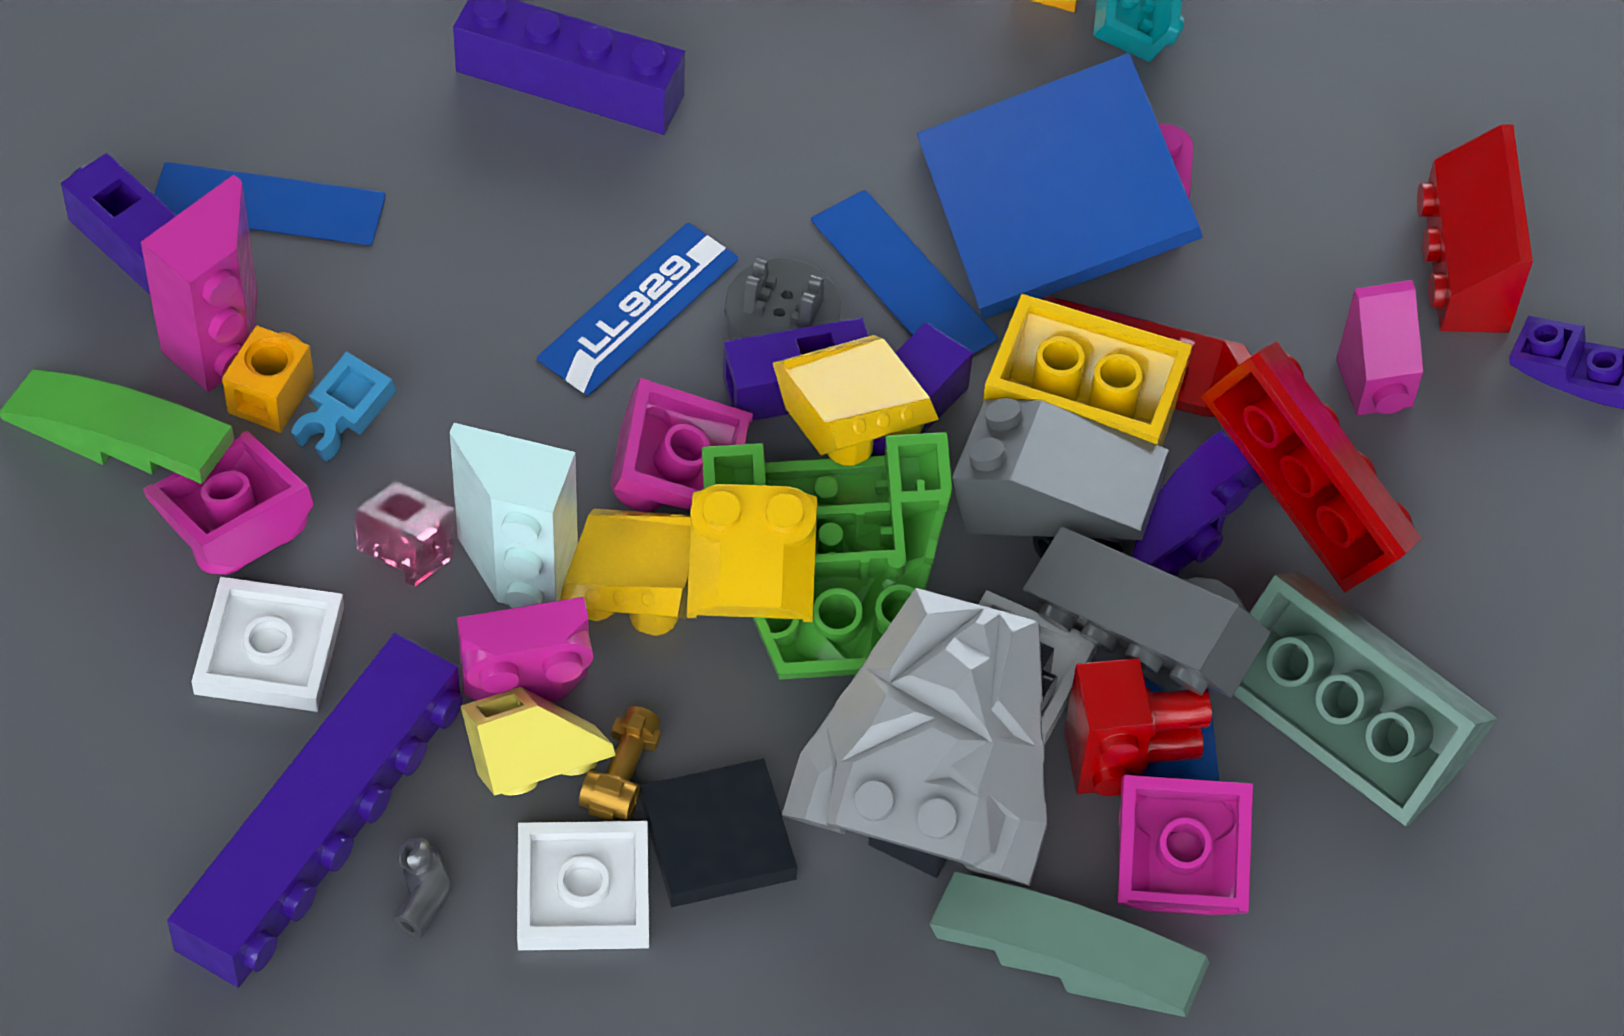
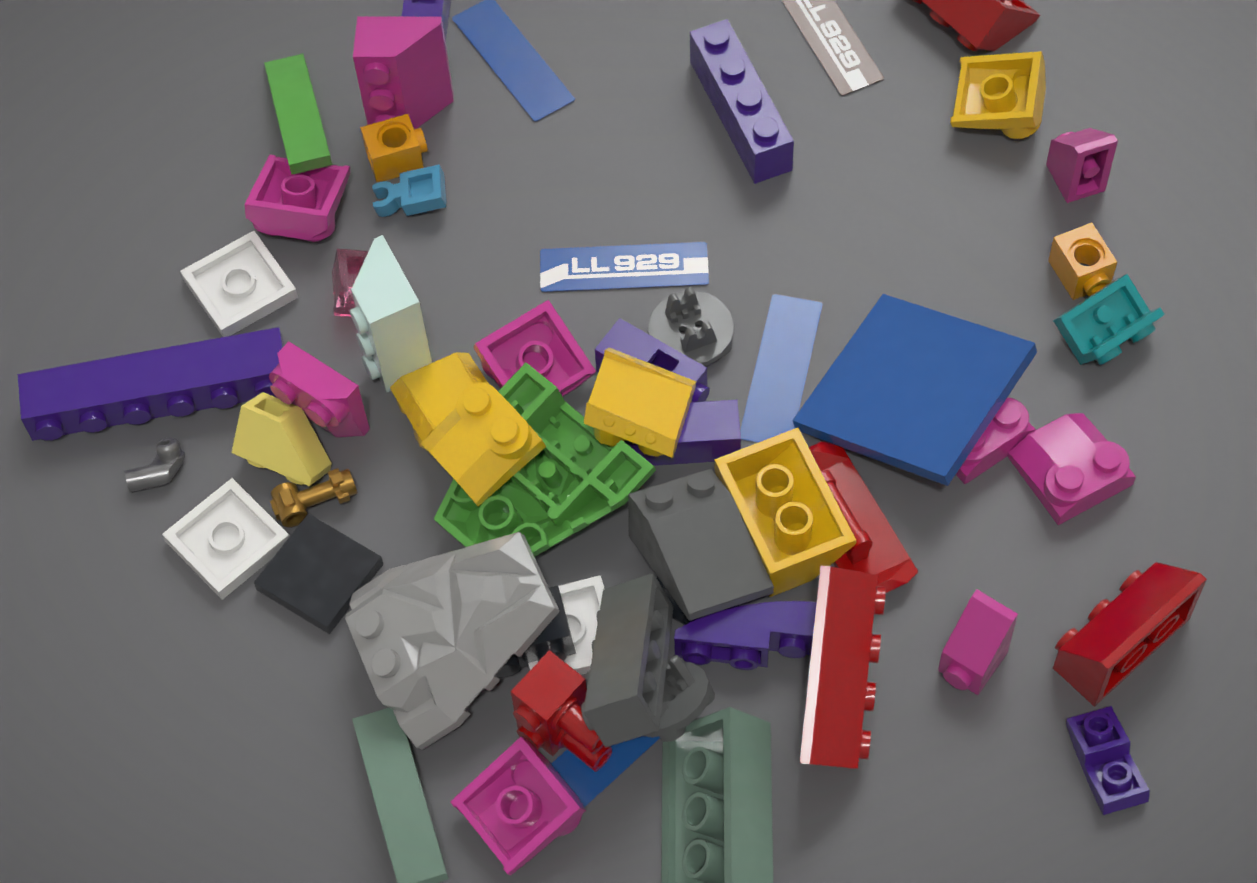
camera: 55 degrees right, 5 degrees up
(1255, 149) = (1071, 466): none -> dark pink slope

